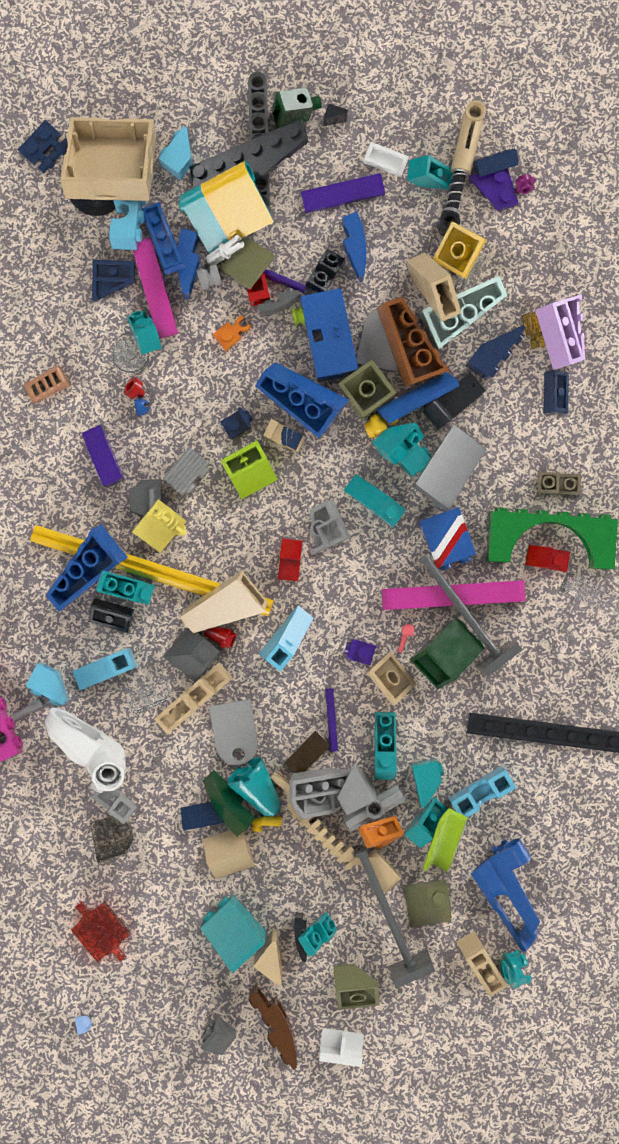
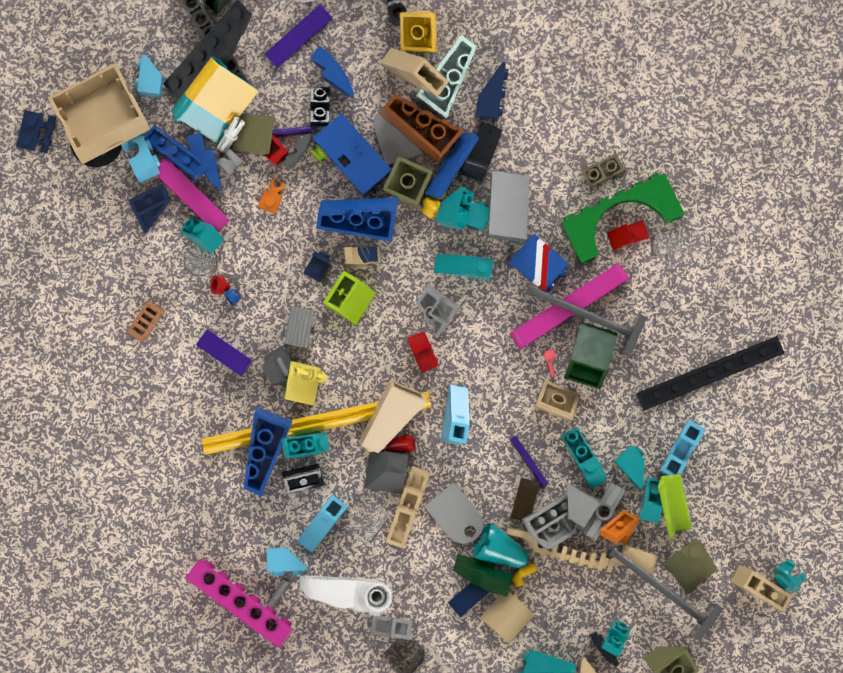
camera: 35 degrees left, 5 degrees down
(360, 651) = (520, 393): dark purple bracket -> none
(497, 878) = (732, 512): blue panel -> none
(533, 329) = (512, 57): clear yellow plate -> none
(556, 392) = (559, 99): dark blue slope -> none
(563, 331) = (536, 50): lavender wedge -> none

